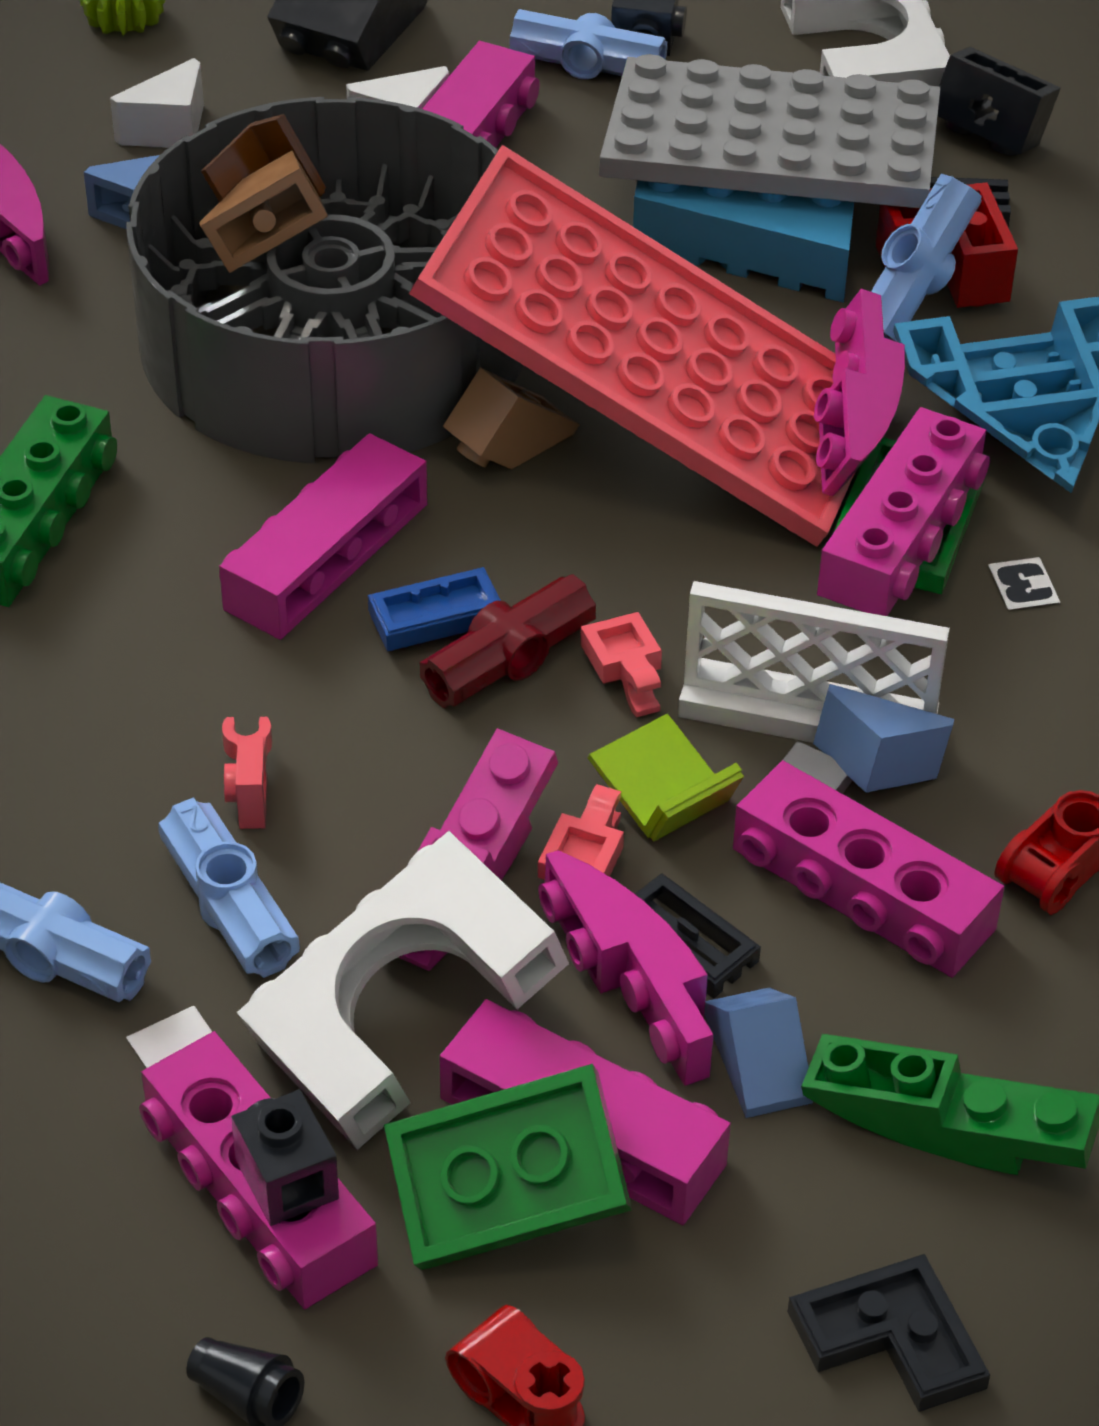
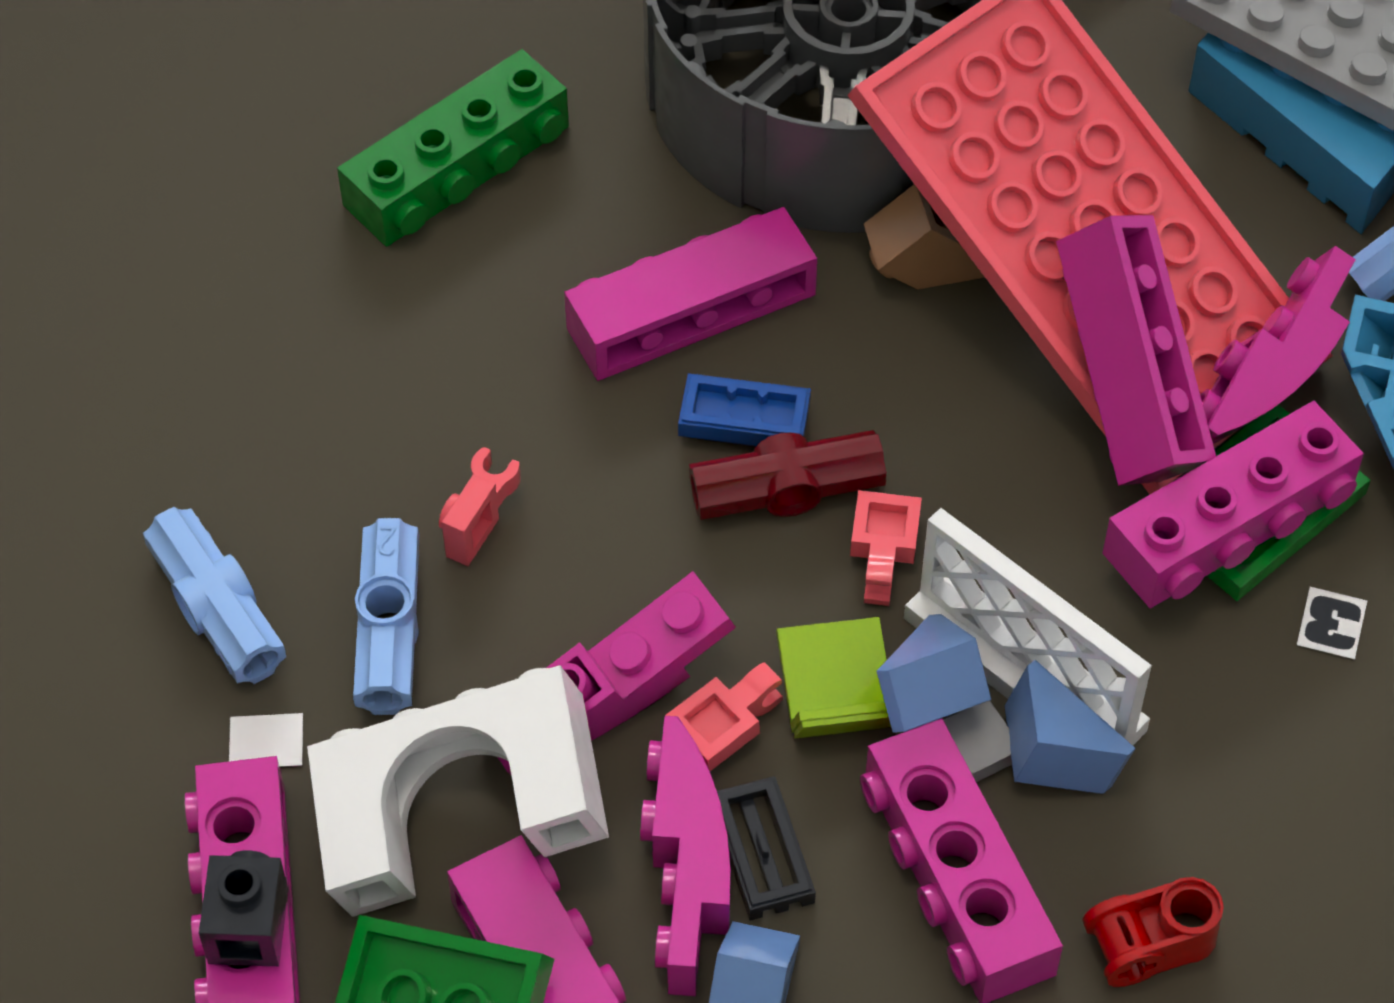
camera: 30 degrees right, 10 degrees up
(758, 725) = (932, 675): none -> medium blue slope
(759, 416) = (1135, 349): none -> dark pink brick

